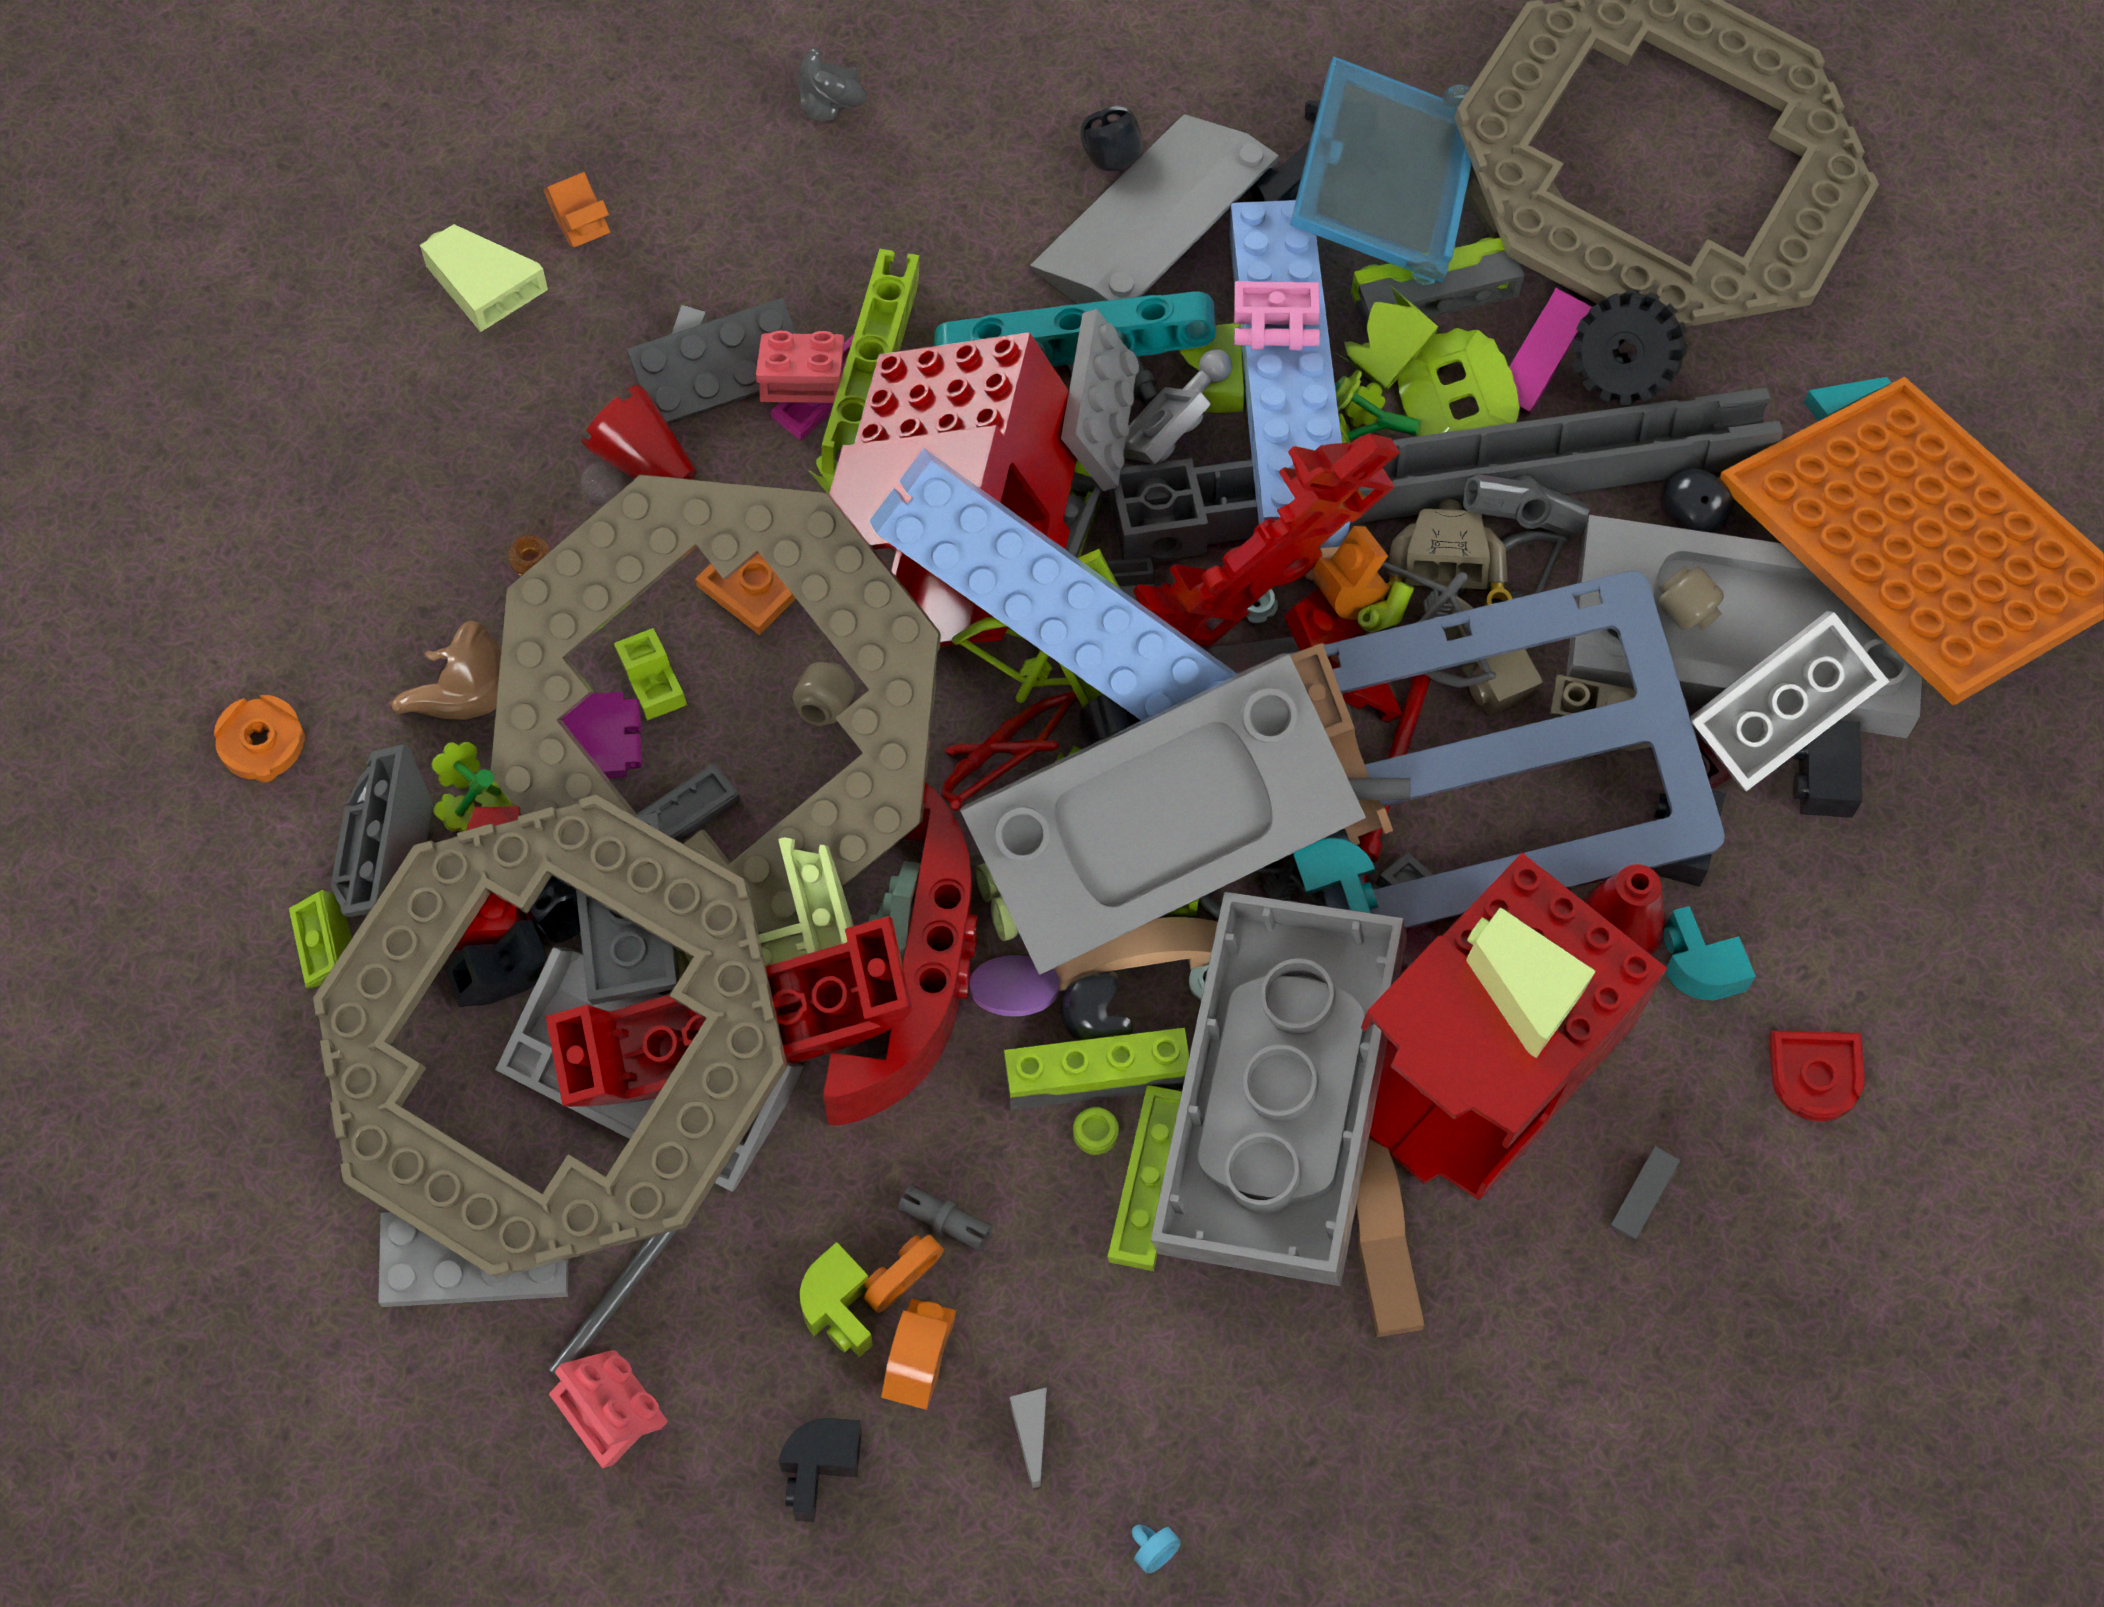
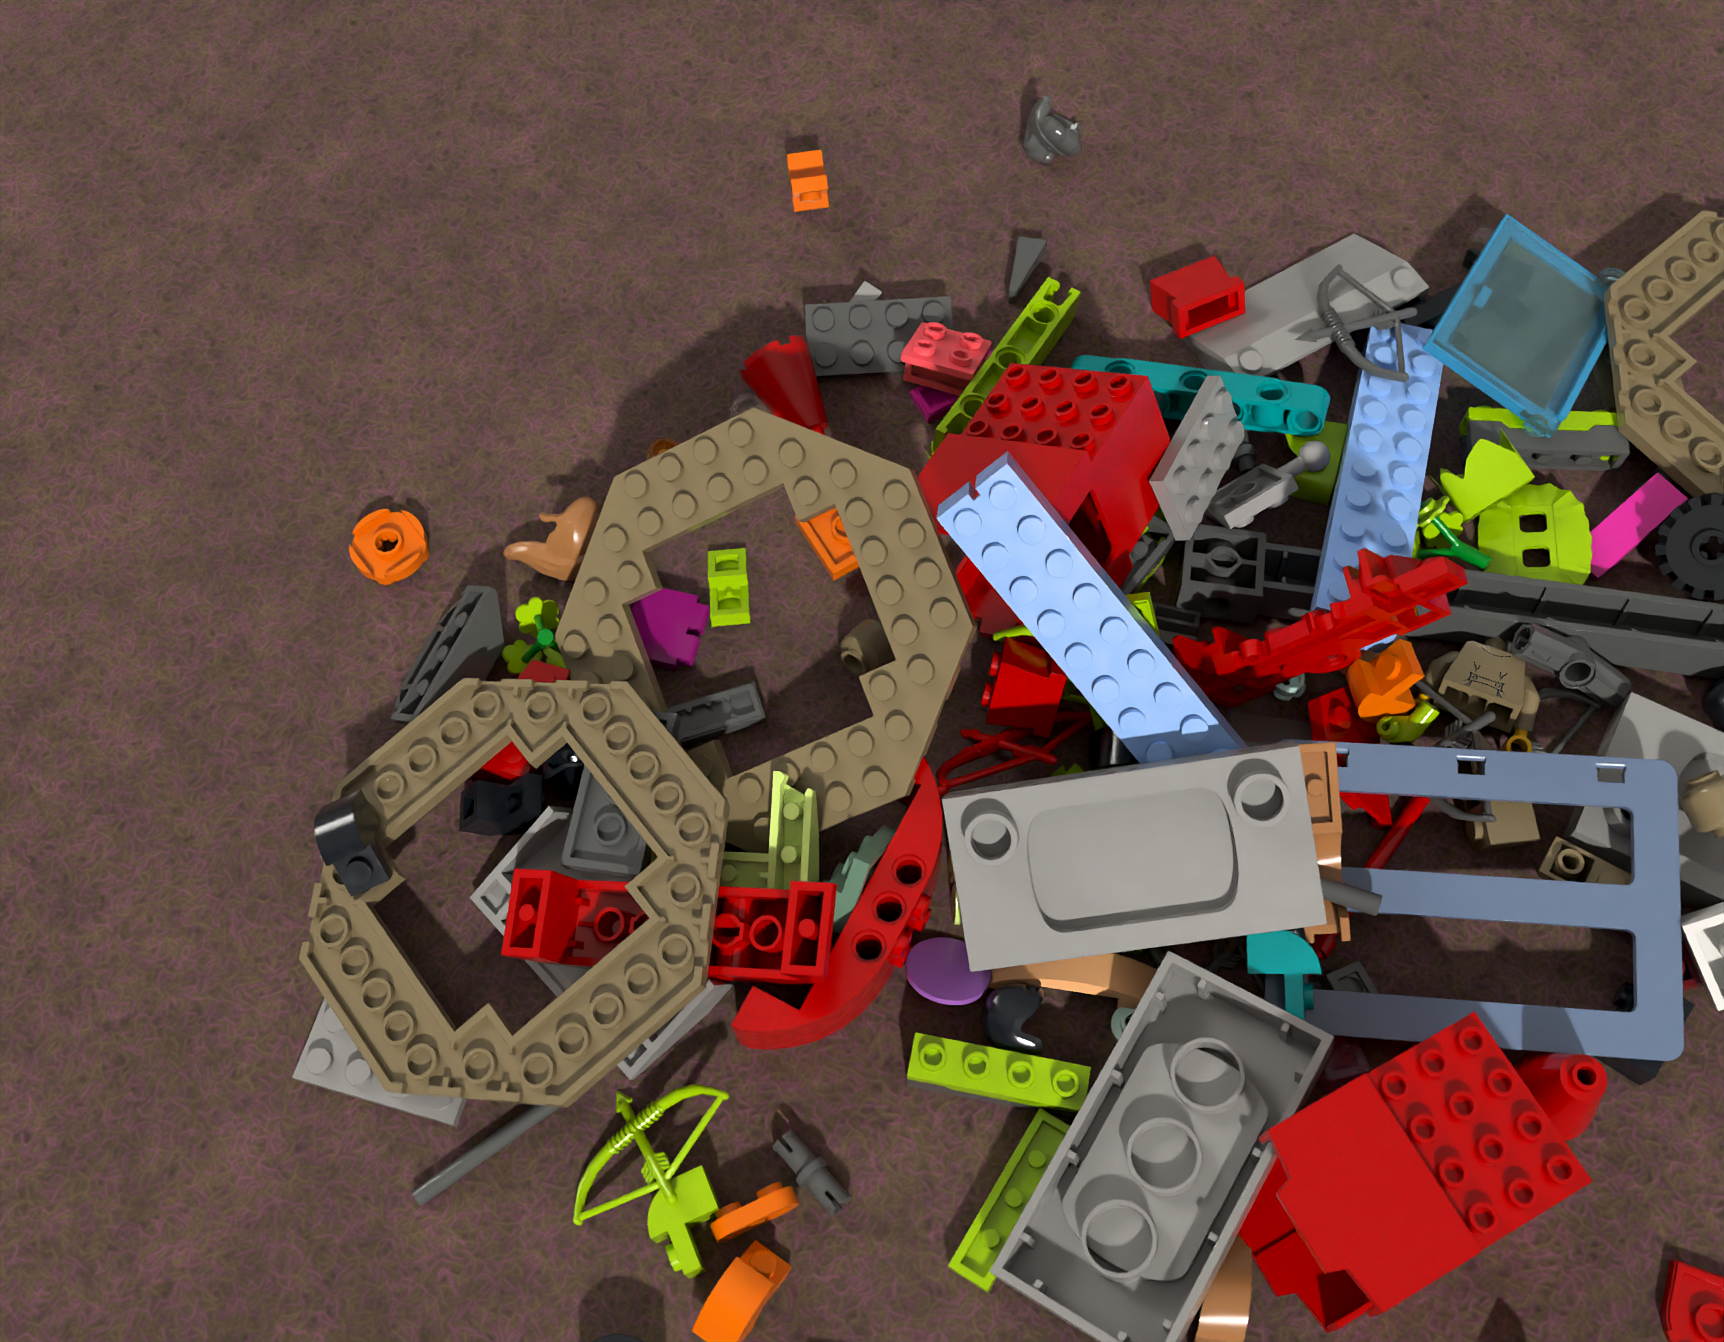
camera: 25 degrees right, 0 degrees up
(319, 935) = (371, 727): lime slope -> none
(363, 1045) = (346, 840): none -> black brick
(482, 275) = (712, 214): yellowish green slope -> none
(605, 1405) = (448, 1245): coral bracket -> none
(789, 1257) = (655, 1163): none -> lime piece
(847, 234) = (1027, 258): none -> dark grey piece
(1000, 683) = (1024, 688): none -> red hips
(1043, 228) = (1197, 297): none -> red hips
(1095, 1130) = (978, 1134): lime tile -> none
(1112, 143) = (1283, 241): black helmet -> none
(1202, 227) = (1380, 319): none -> dark grey piece
(1278, 304) = (1387, 415): bright pink plate -> none
(1526, 977) = (1444, 1152): yellowish green slope -> none
(1703, 969) = (1618, 1173): teal brick -> none

